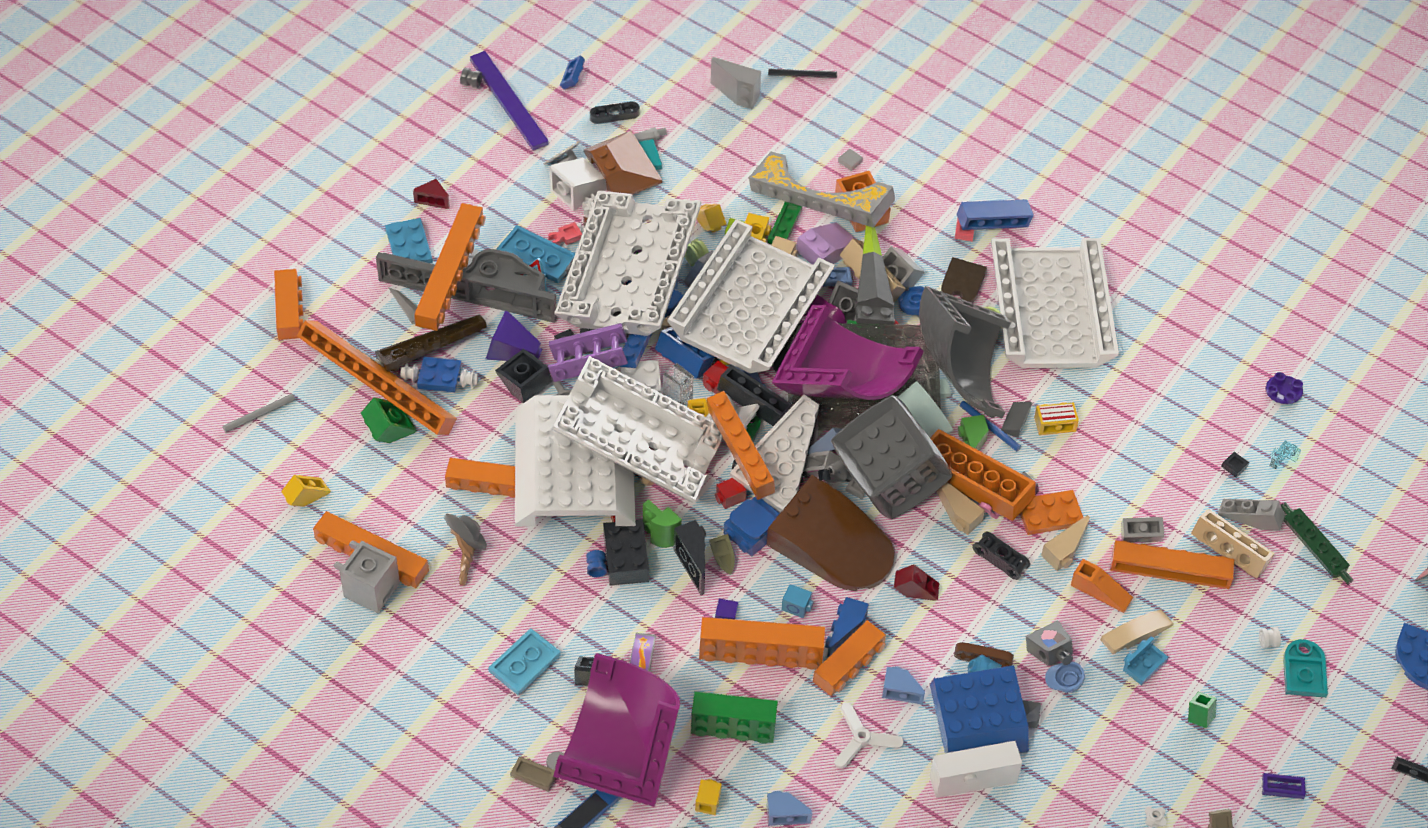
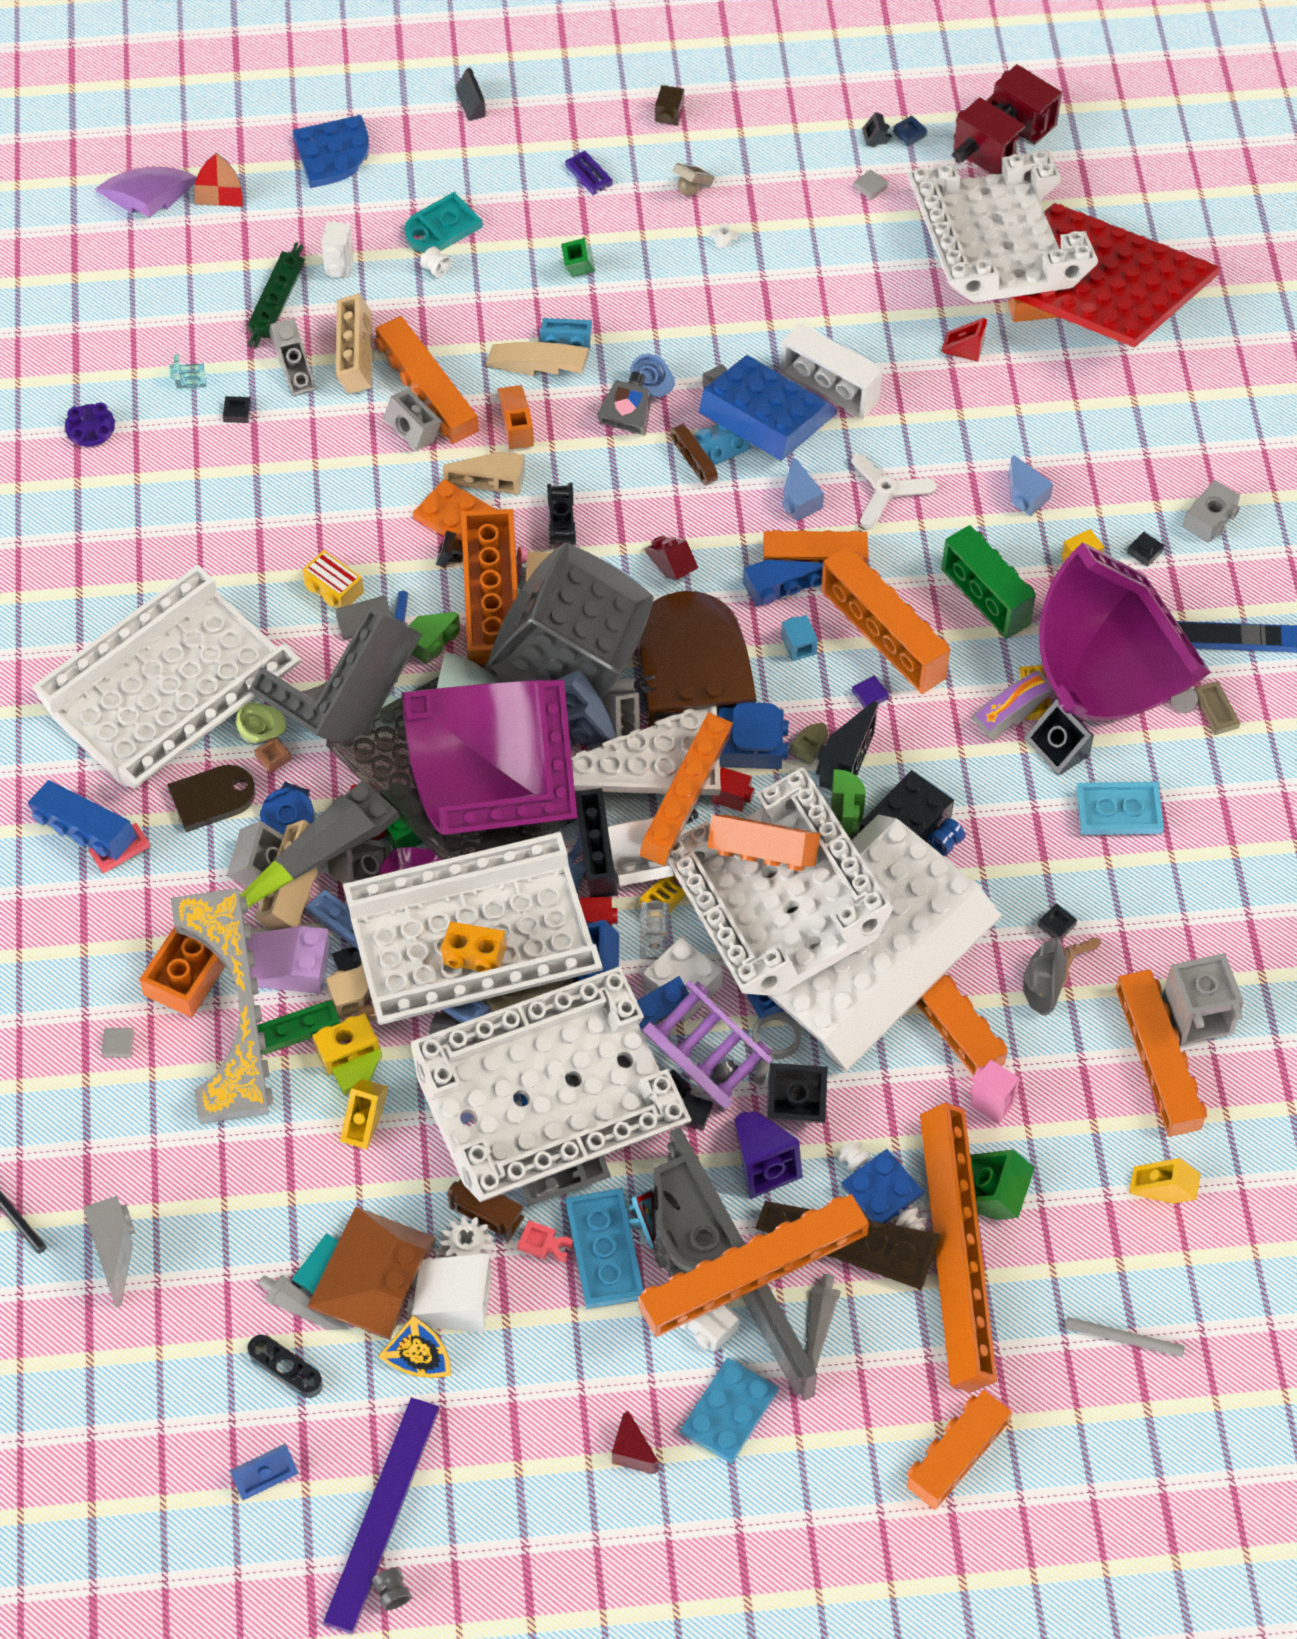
camera: 130 degrees left, 5 degrees up
(431, 452) = (993, 1091): none -> bright pink brick
(491, 571) = (1057, 922): none -> black plate
(667, 442) = (763, 840): none -> brick
(739, 287) = (474, 944): none -> light orange brick
(1320, 584) = (337, 249): none -> white brick

